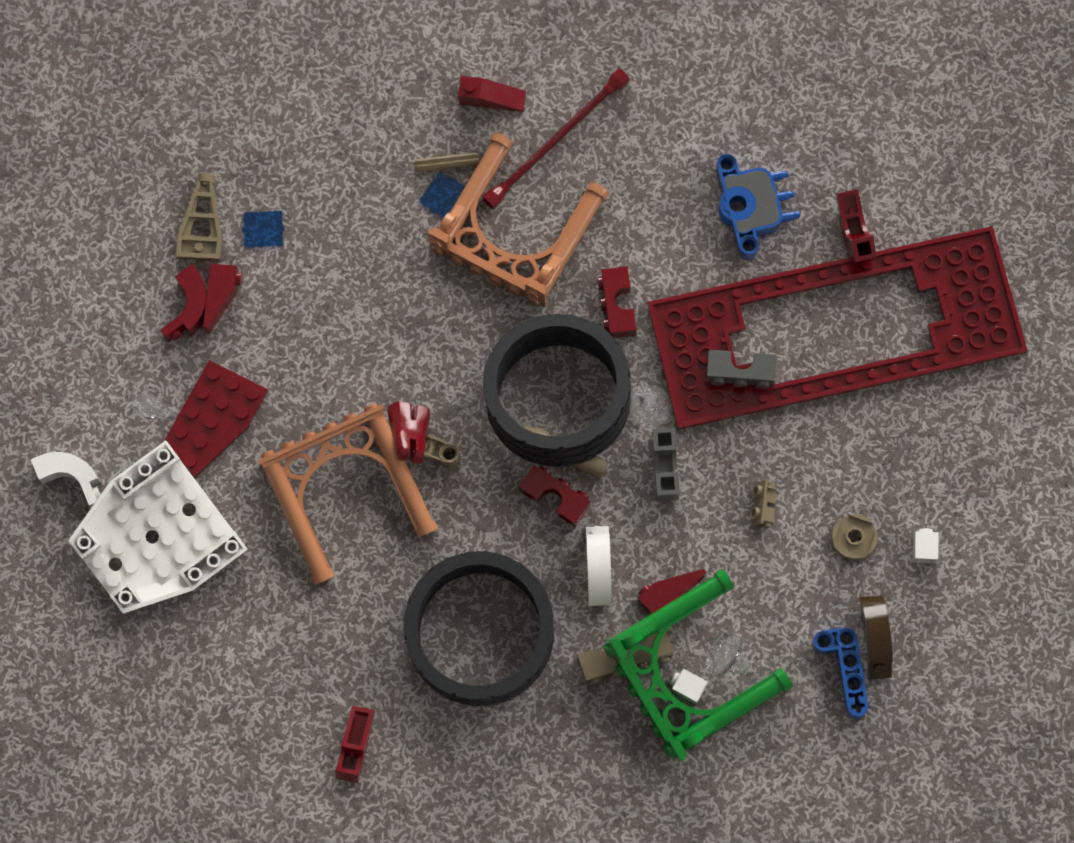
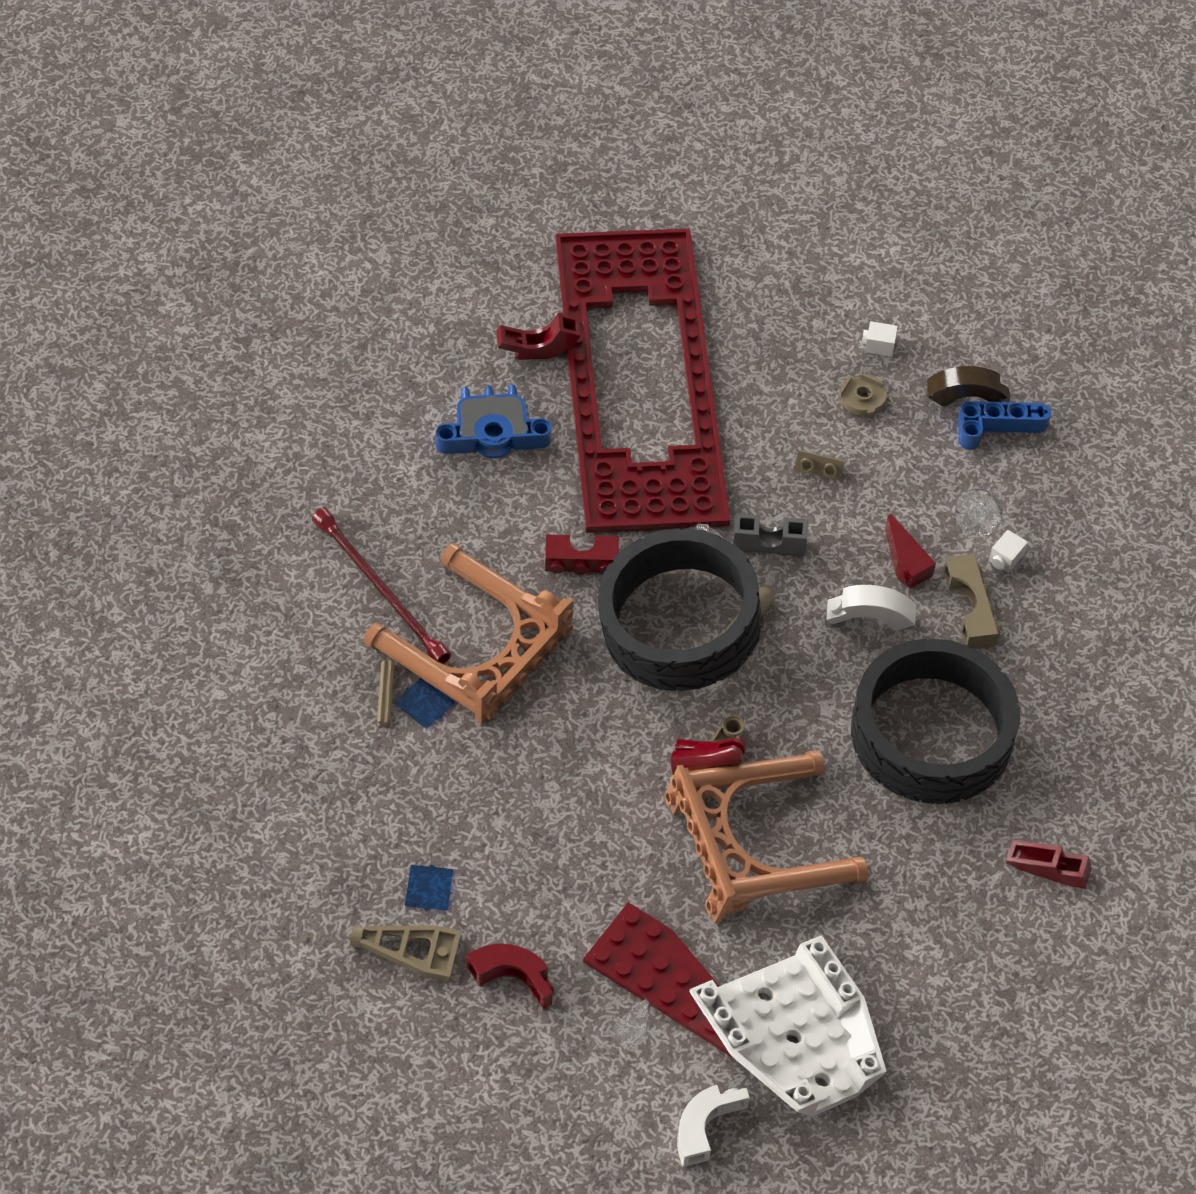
camera: 90 degrees left, 20 degrees down
(221, 290) = (496, 928): dark red slope -> none
(490, 94) = (314, 641): dark red slope -> none
(540, 482) = (800, 625): dark red arch -> none
(716, 717) = (979, 580): green arch -> none
(760, 373) = (674, 466): dark grey arch -> none

